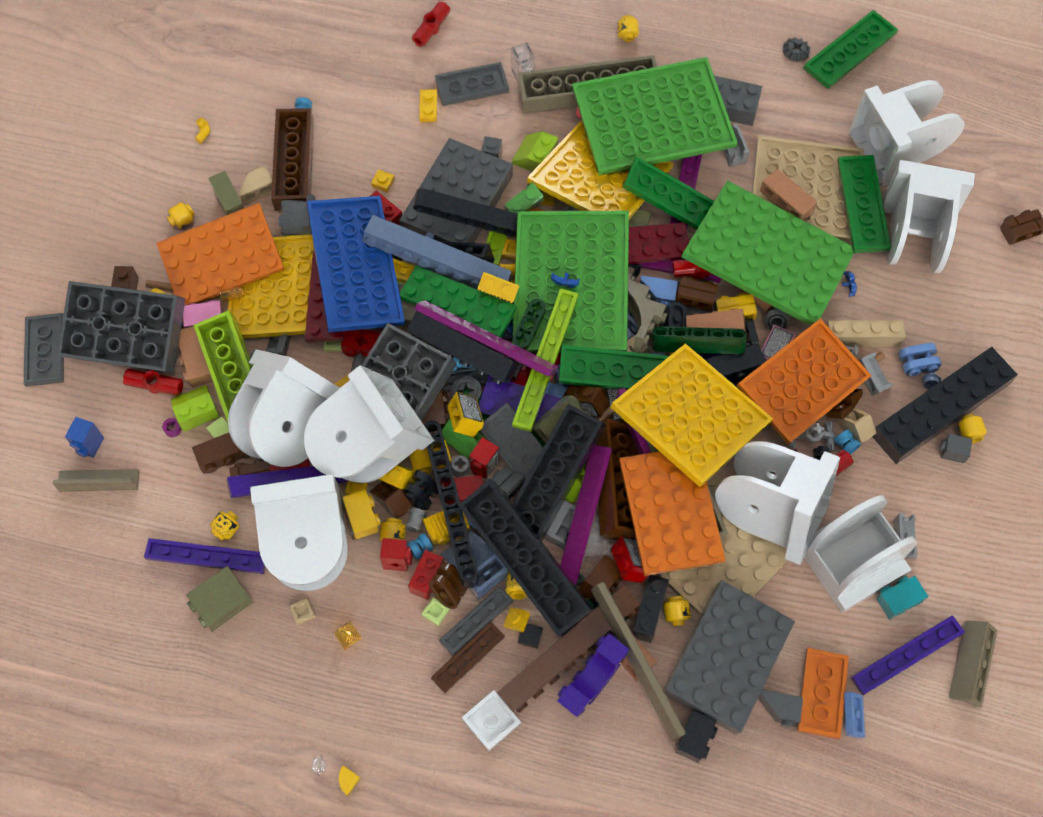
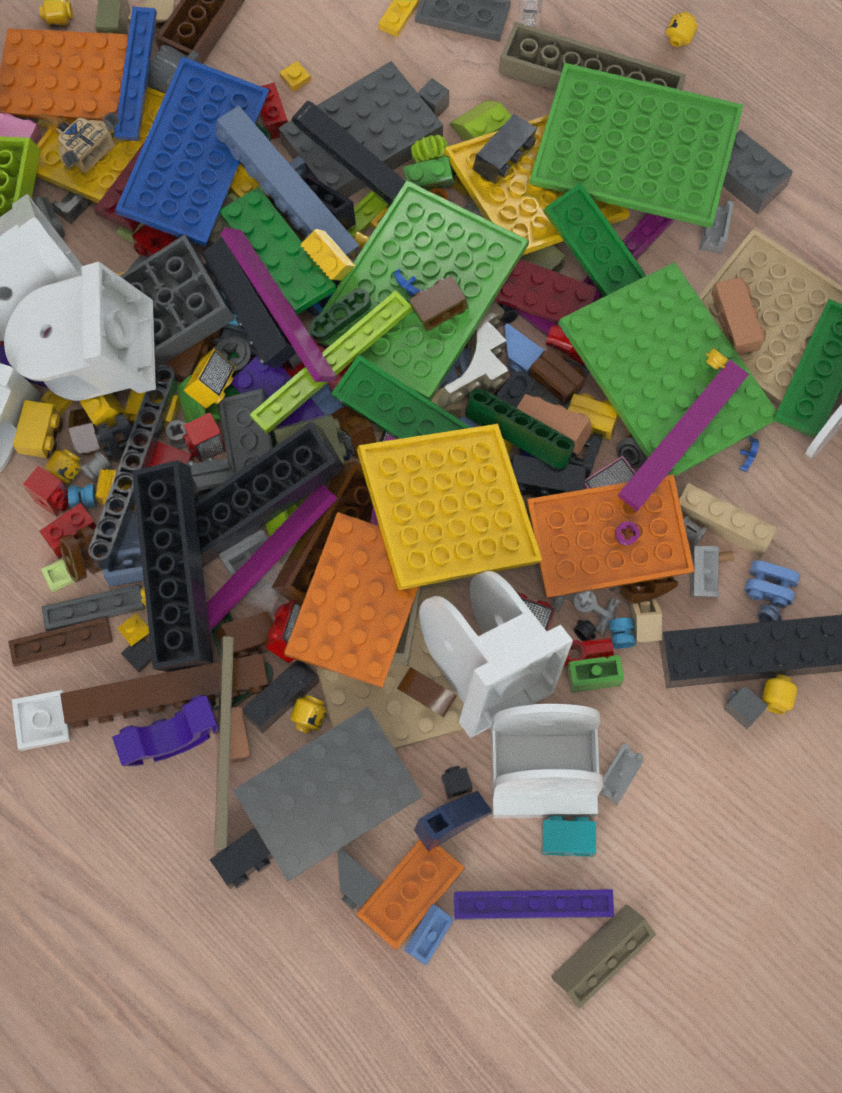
camera: 30 degrees right, 5 degrees up
(267, 294) = (86, 141): none -> tan torso
(276, 229) = (135, 73): none -> blue plate
(513, 185) = (428, 149): none -> lime gear
(569, 159) = (505, 149): none -> black brick
(595, 282) = (438, 303): none -> reddish brown brick
(750, 550) = (427, 692): none -> reddish brown slope
(797, 229) = (716, 359): none -> yellow plate
(805, 601) = (456, 782): none -> black plate
(810, 290) = (682, 435): none -> magenta tile
(813, 377) = (634, 528): none -> magenta bush
(821, 629) = (451, 819): none -> dark blue slope
(851, 477) = (595, 673): none -> bright green brick

